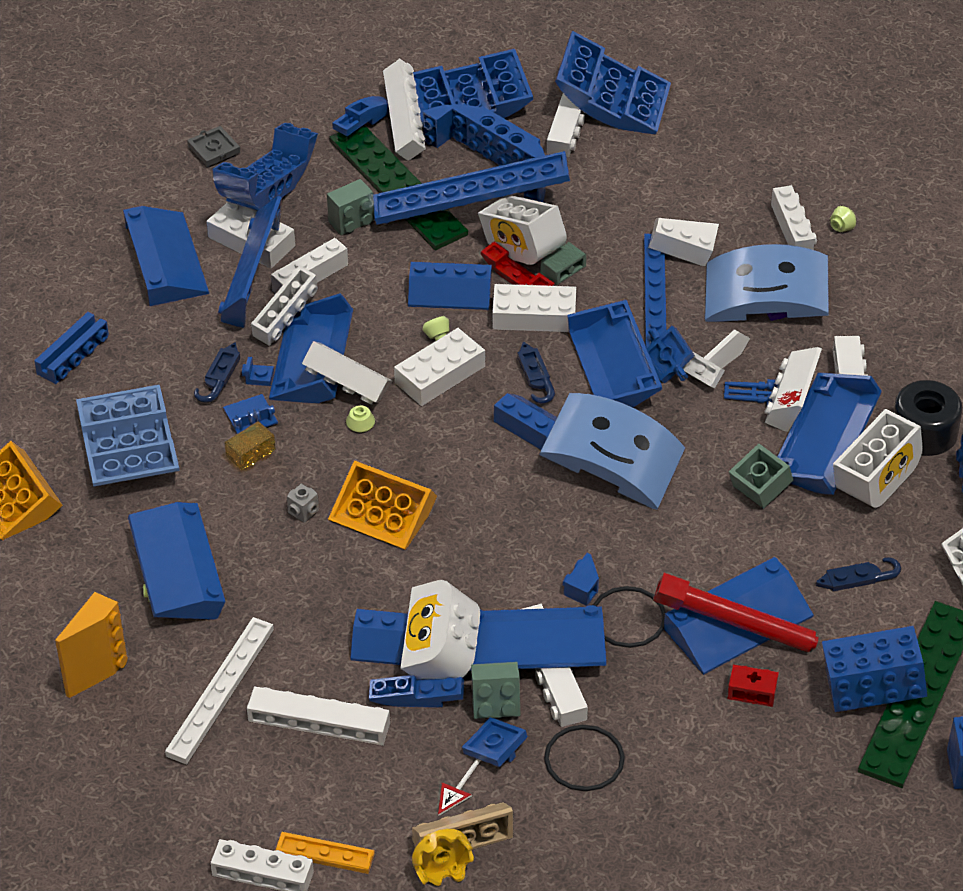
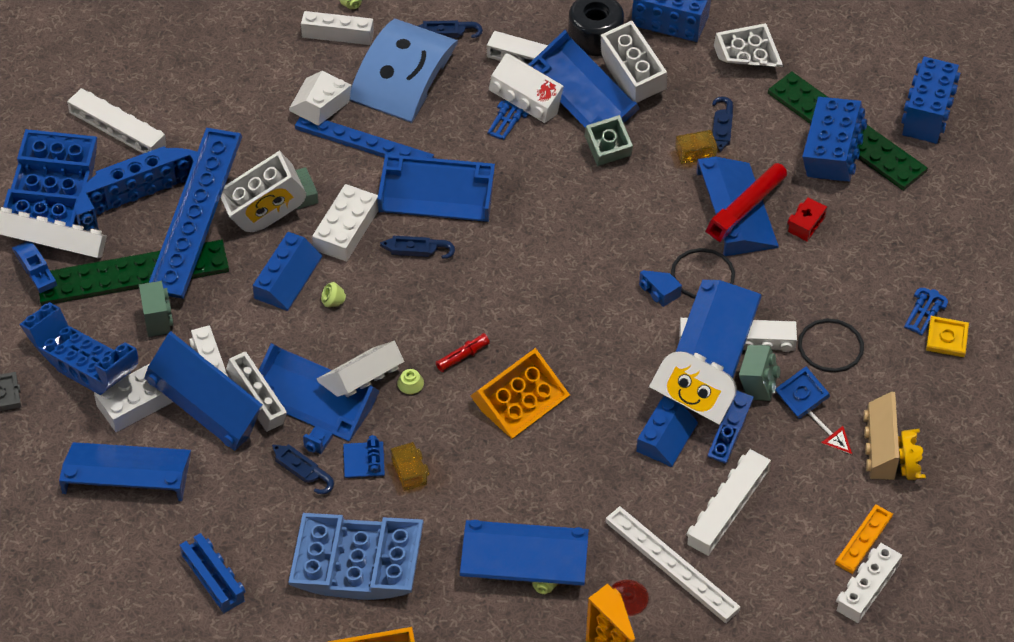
camera: 70 degrees left, 5 degrees up
(172, 673) = (637, 601): none -> clear red dish
(302, 502) = (493, 447): light grey brick -> none
(423, 451) = (469, 348): none -> red pin
(439, 366) = (381, 306): white brick -> none
(509, 269) = (296, 223): red slope -> none
(524, 419) = (480, 264): blue slope -> none
(610, 89) = (116, 81): blue slope -> none
(615, 446) = (534, 219): medium blue slope -> none
(648, 863) = (947, 336): none -> yellow plate
(669, 354) = (448, 147): blue plate -> none
(705, 835) = (933, 294): none -> blue piece
(710, 367) = (473, 136): white piece -> none
(800, 555) = (695, 146): none -> clear yellow brick
(849, 306) = (452, 28): none -> dark blue plate

